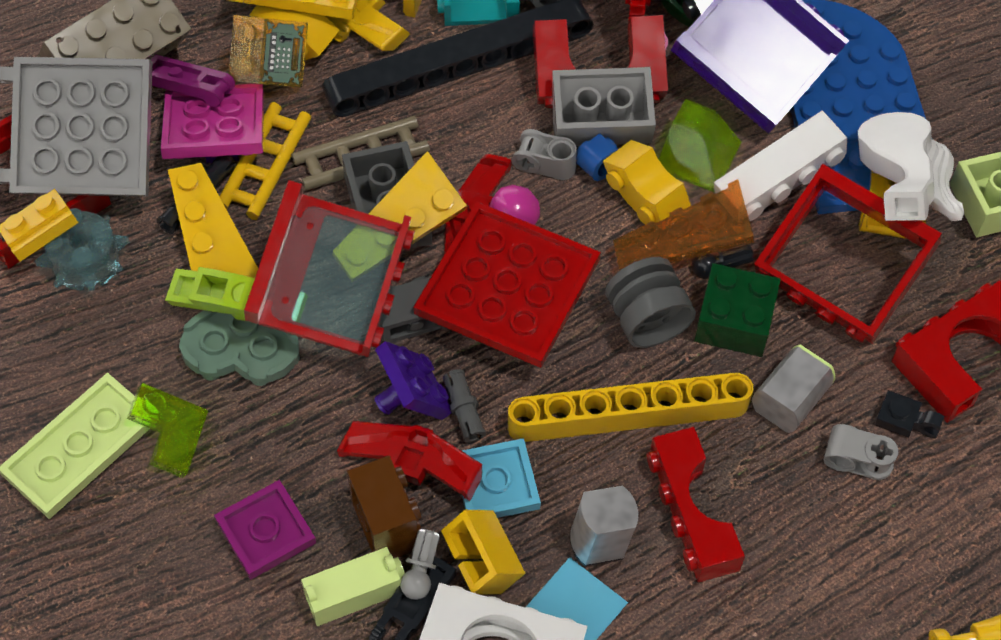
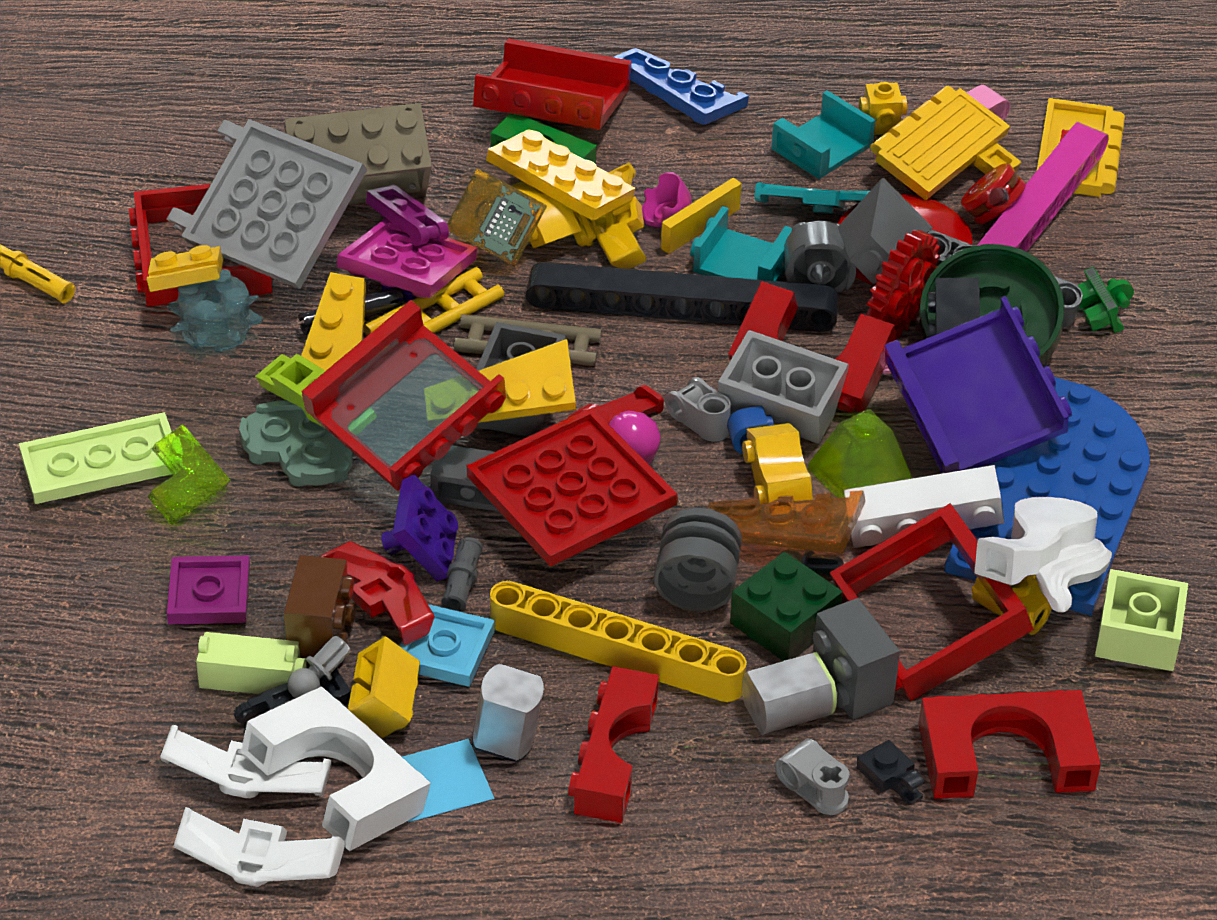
camera: 30 degrees right, 15 degrees down
(829, 330) = (857, 657): none -> dark grey brick

